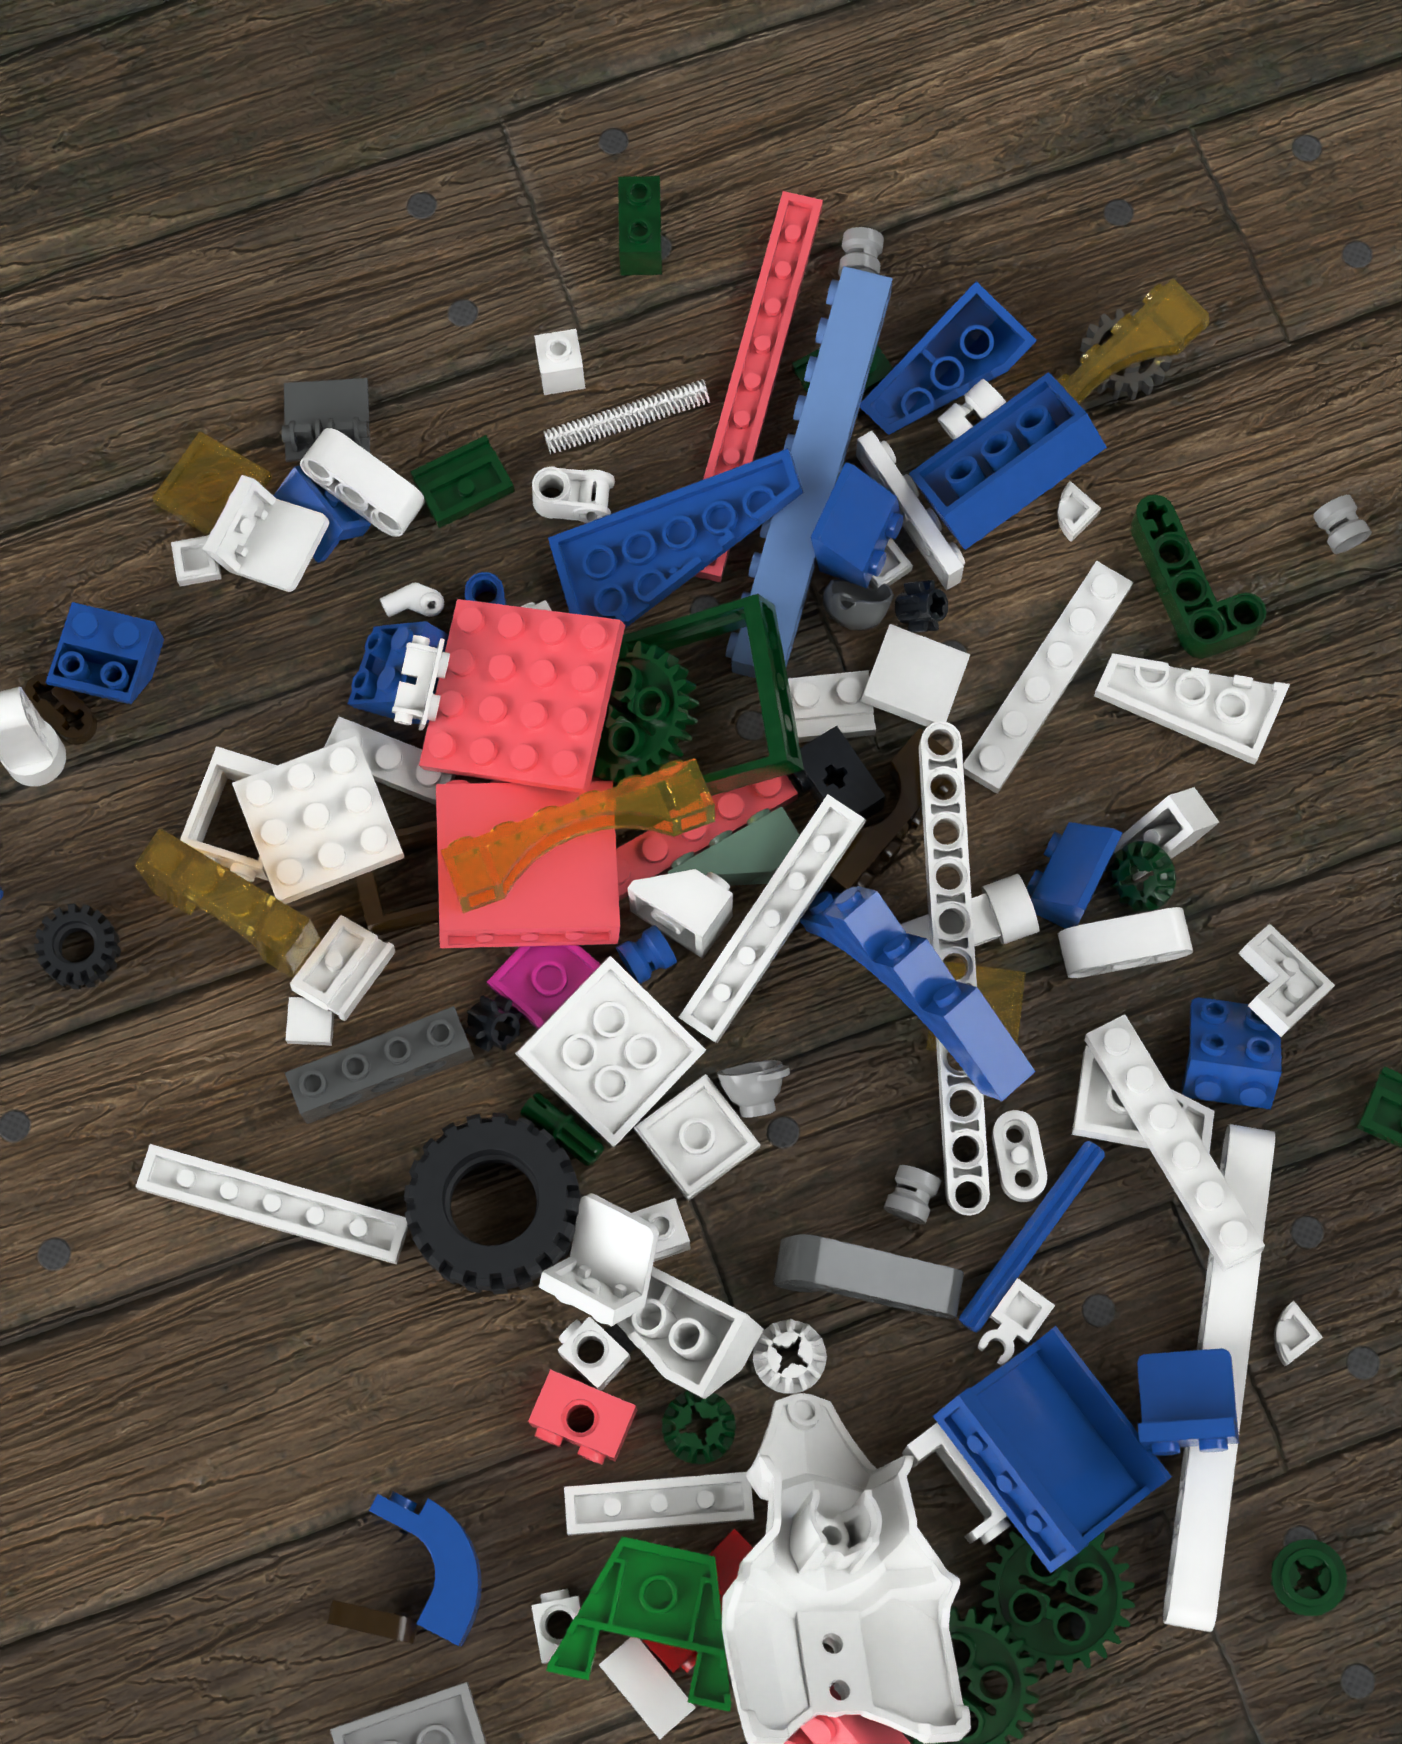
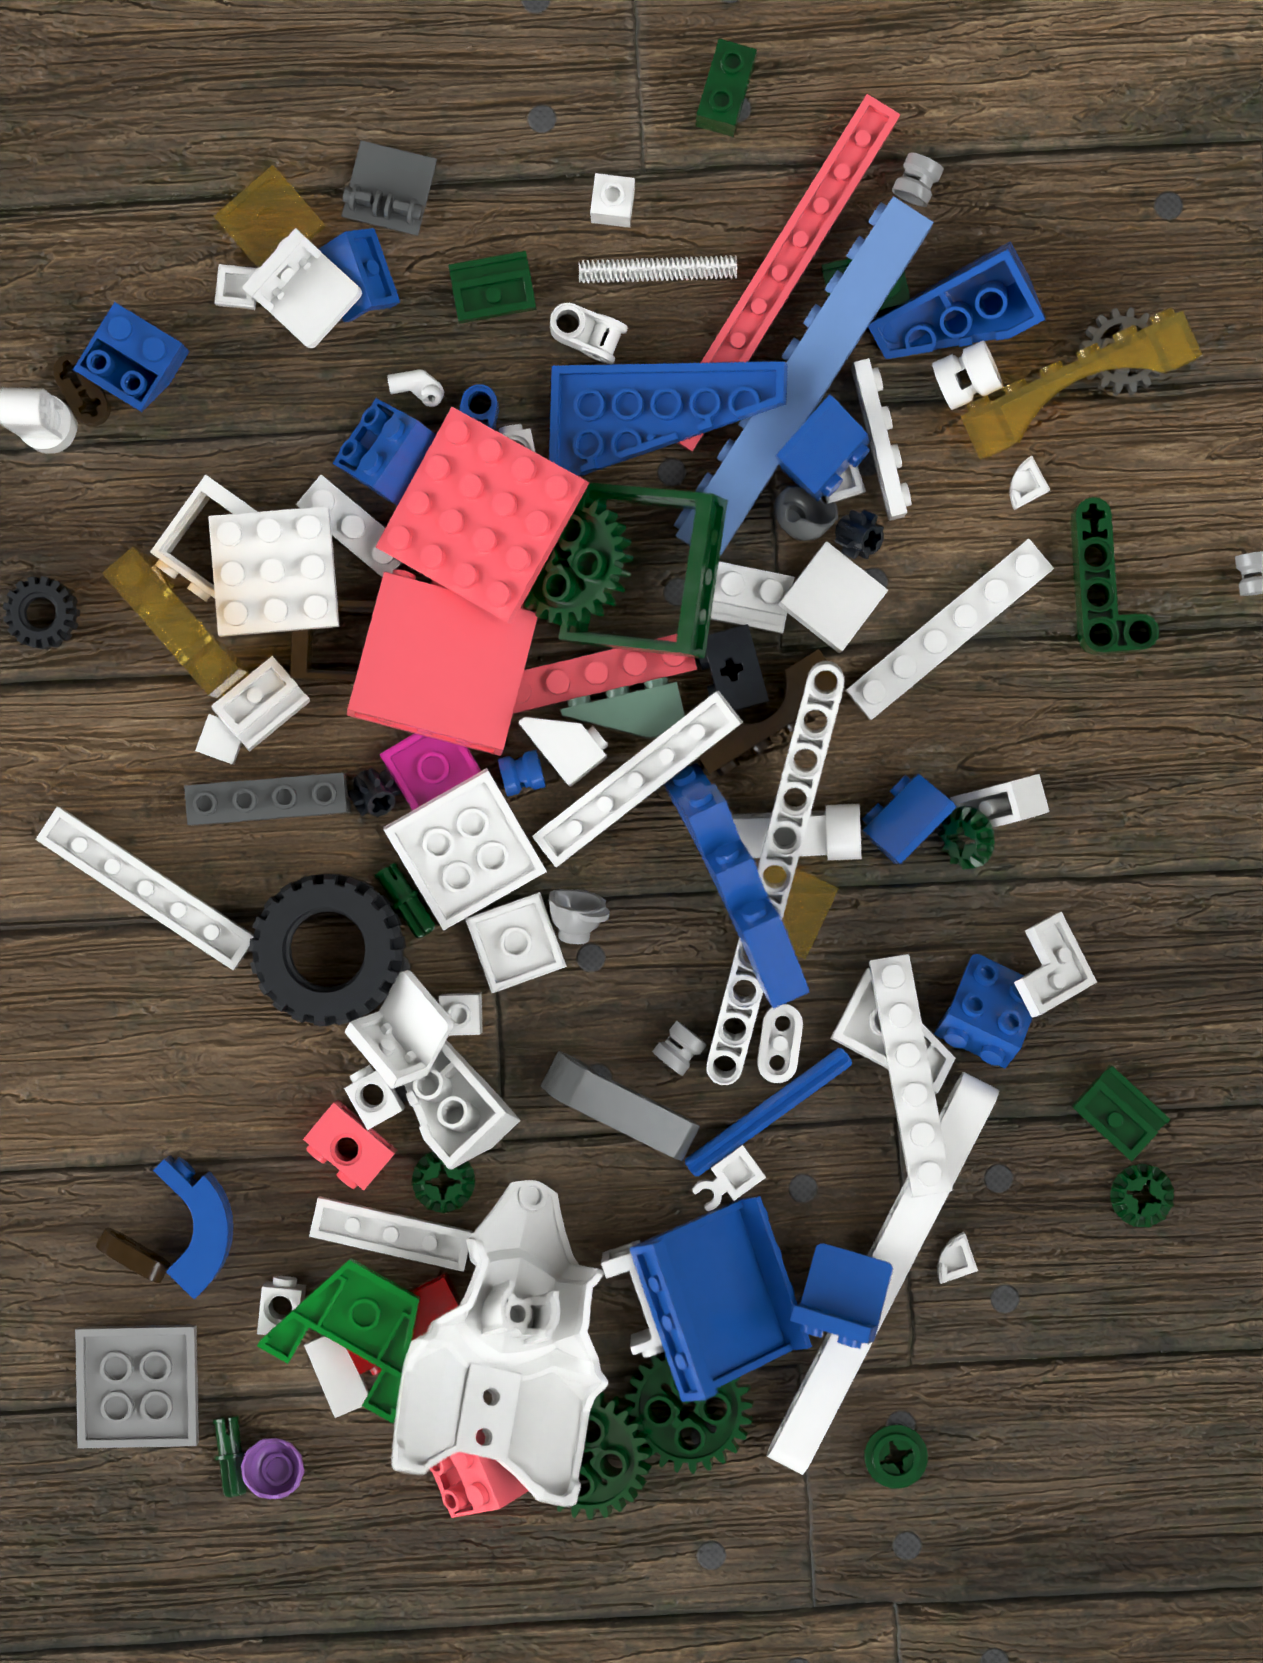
camera: 15 degrees right, 15 degrees up
(362, 482) = (401, 264): white beam -> none
(424, 664) = (406, 464): white hinge -> none
(662, 802) = (405, 667): clear yellow arch -> none
(795, 1377) = (536, 1128): white gear -> none
(1008, 460) = (976, 430): blue slope -> none
(1125, 942) = (932, 890): white beam -> none
(1204, 706) = (1078, 702): white wing -> none

